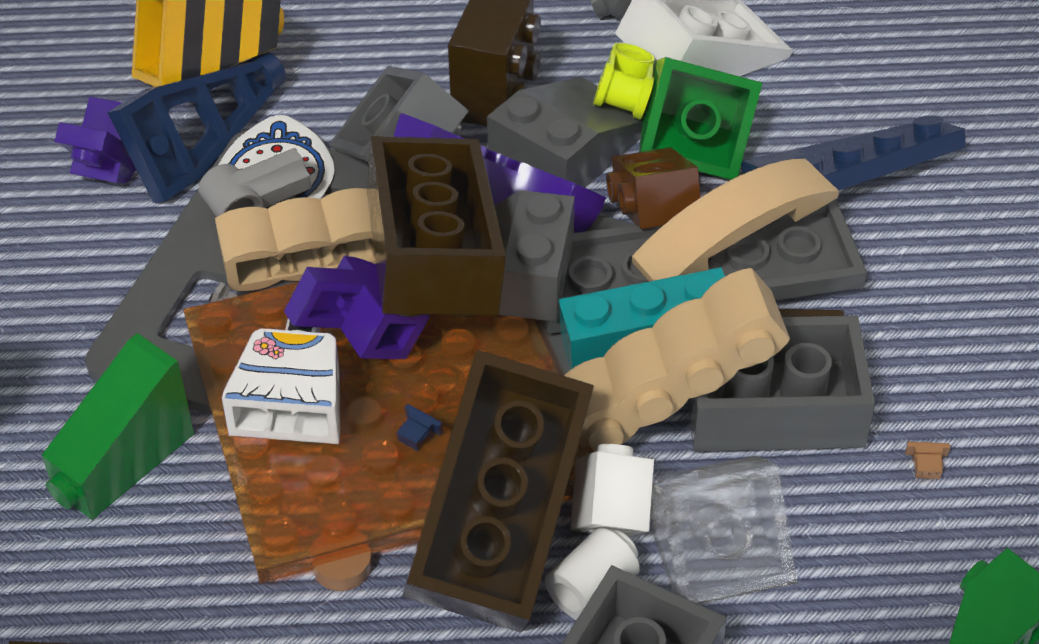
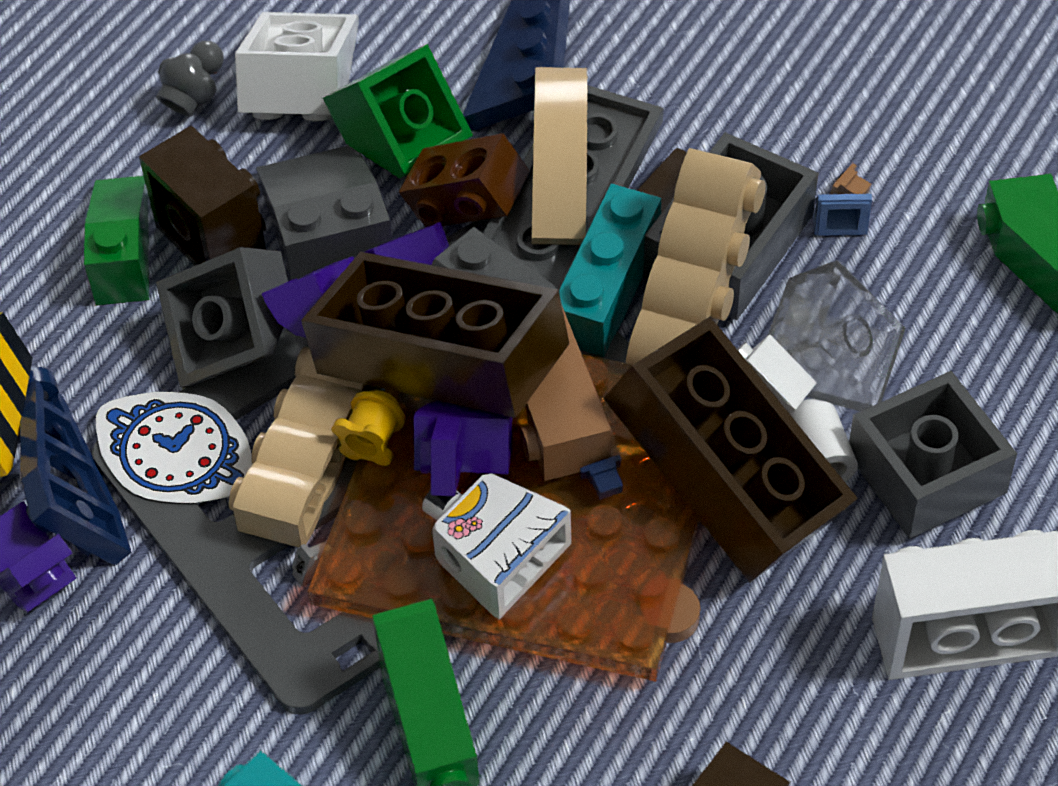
camera: 55 degrees left, 5 degrees up
(255, 186) = (203, 470): light grey piece -> none
(347, 242) = (370, 427): none -> yellow brick
(418, 37) = (118, 241): none -> green slope
(436, 360) = (566, 418): none -> medium nougat slope
(626, 79) = (318, 133): neon yellow piece -> none
(879, 466) = (842, 214): none -> medium blue slope

